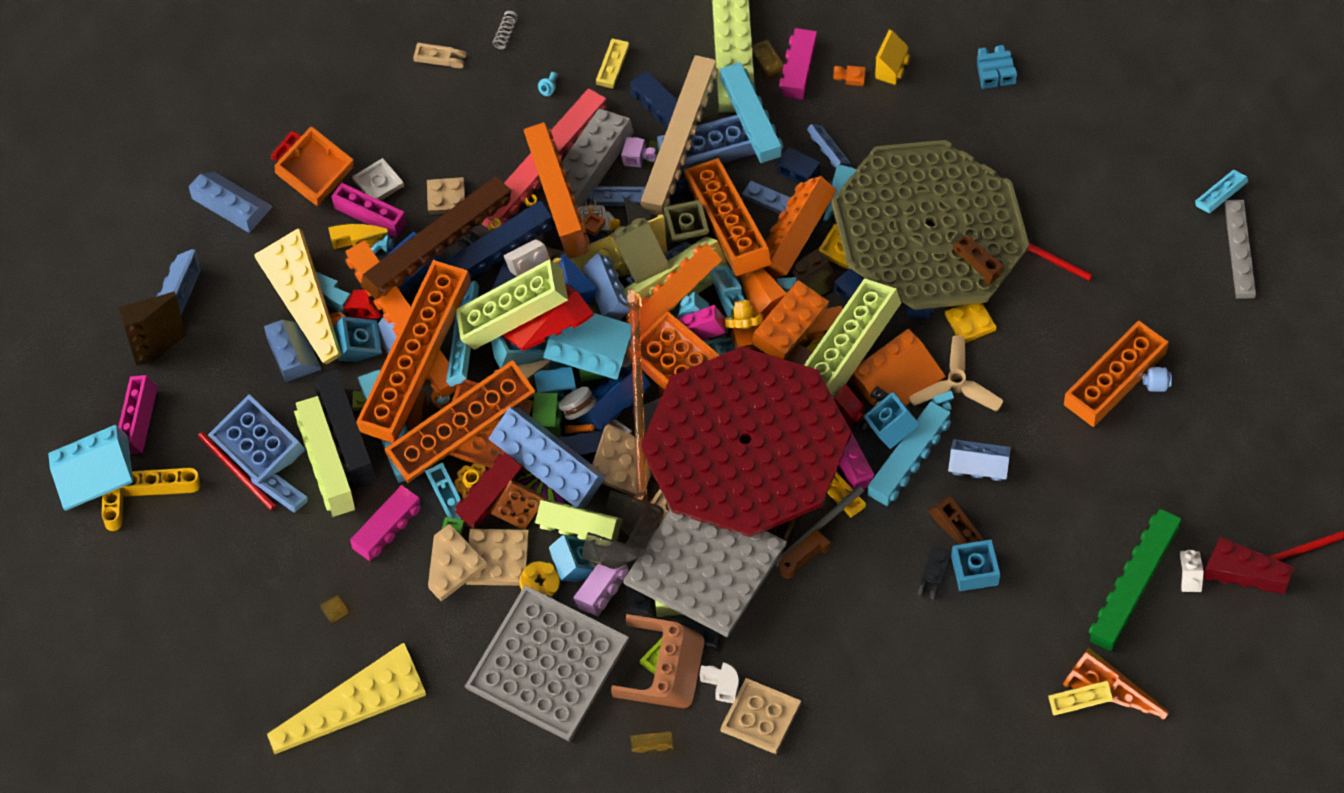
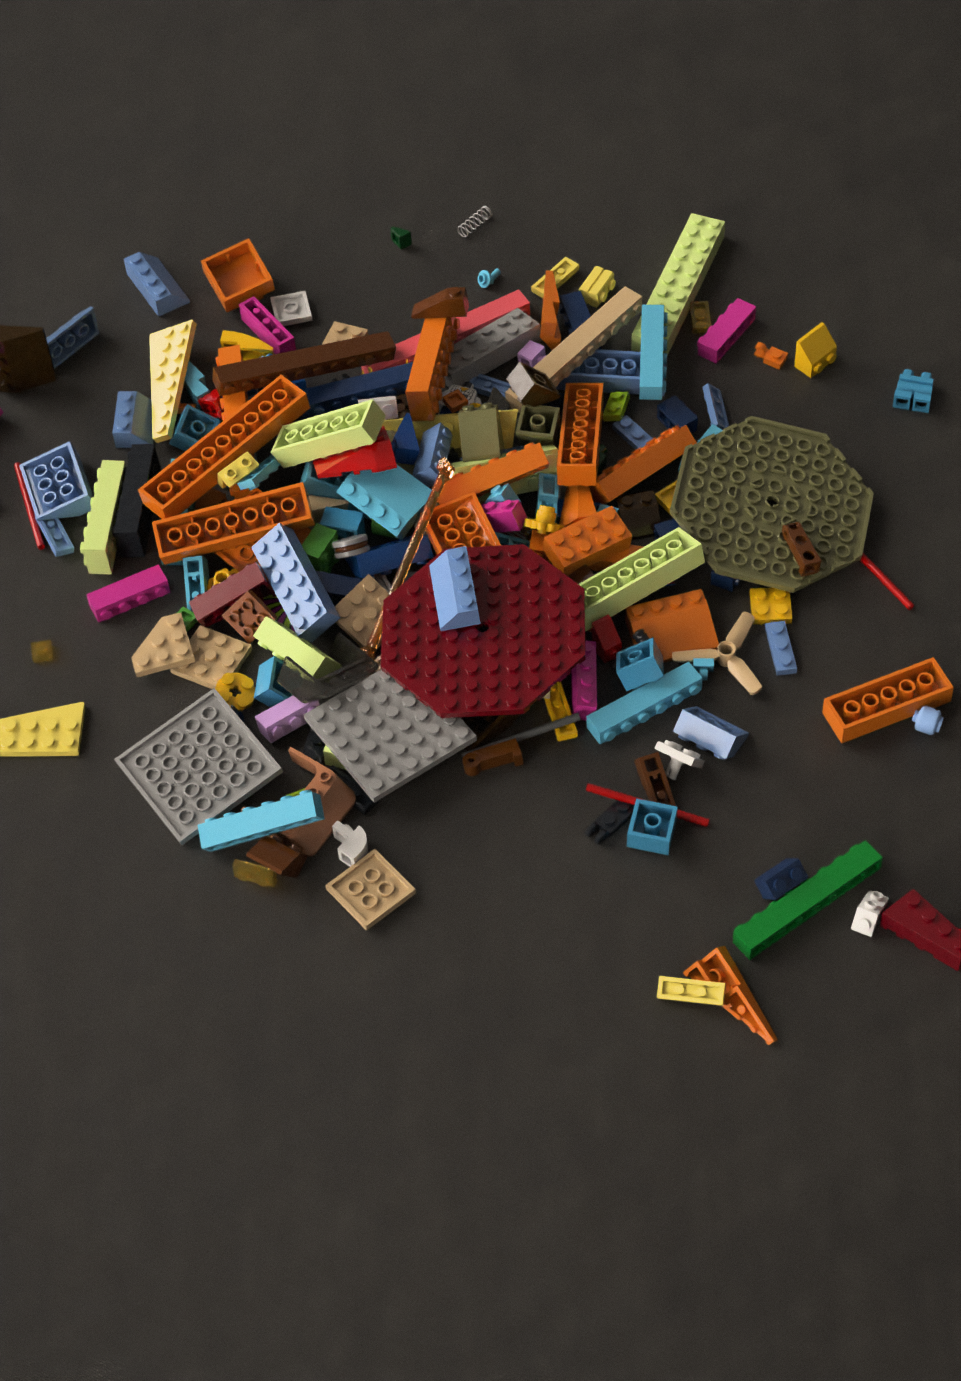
camera: 25 degrees right, 5 degrees down
(439, 55) = (402, 221): tan hinge -> none
(440, 369) = (237, 470): none -> light yellow bracket
(443, 70) = (401, 237): none -> dark green slope
(544, 135) = (446, 303): none -> reddish brown slope
(575, 429) = (347, 572): orange bar -> none
(628, 94) = (549, 324): none -> orange wedge
(639, 693) = (261, 821): none -> medium azure brick
(657, 58) = (597, 286): none -> light yellow brick
(666, 188) = (531, 386): none -> dark brown slope
(667, 718) = (278, 855): none -> reddish brown slope
(705, 413) = (454, 590): none -> medium blue slope
(737, 174) = (616, 406): none -> lime plate
(948, 547) = (631, 800): none -> red piece
(965, 493) = (678, 757): none -> white plate
(998, 357) = (780, 648): none -> medium blue plate
(1106, 570) = (781, 878): none -> dark blue brick

